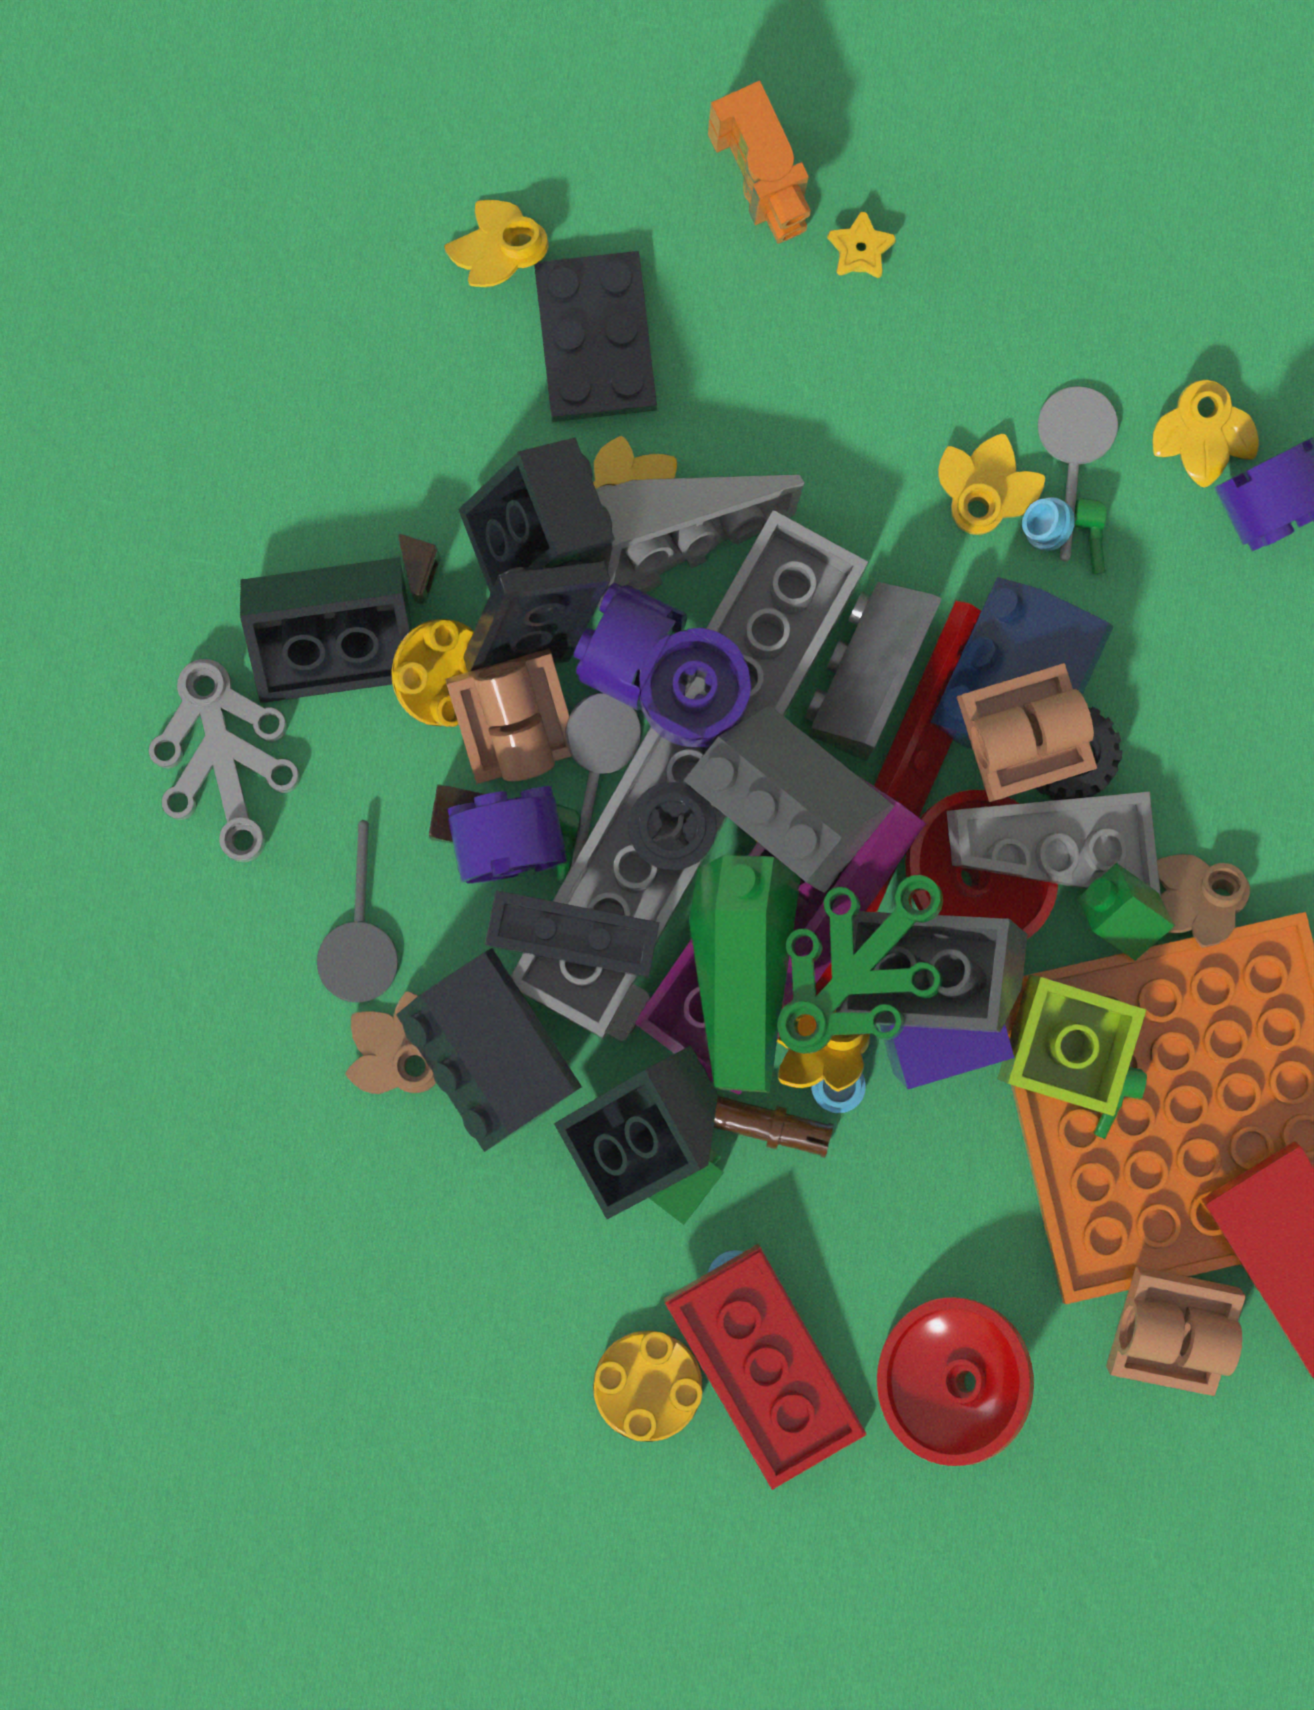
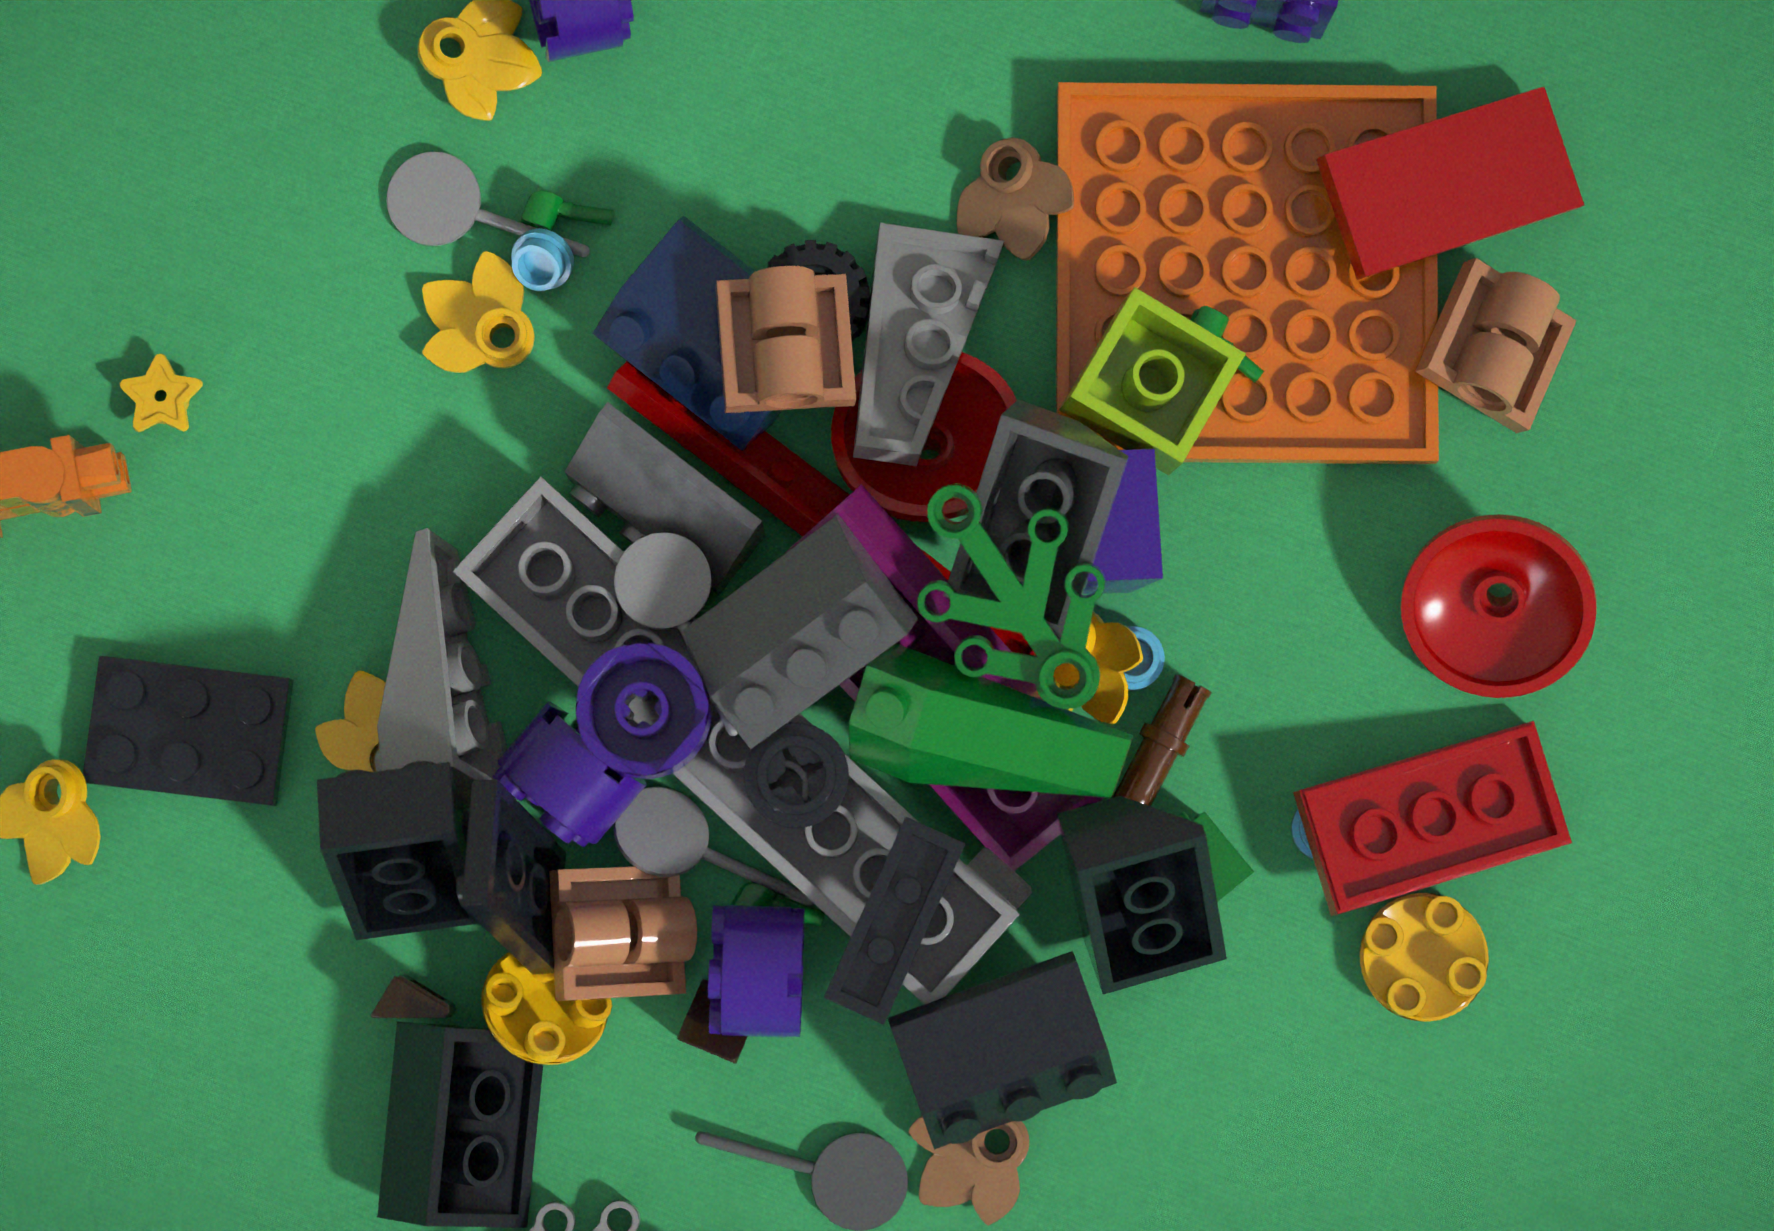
camera: 80 degrees left, 0 degrees up
(805, 681) = (665, 585): none -> light grey piece
(1125, 911) = (1013, 283): green brick -> none

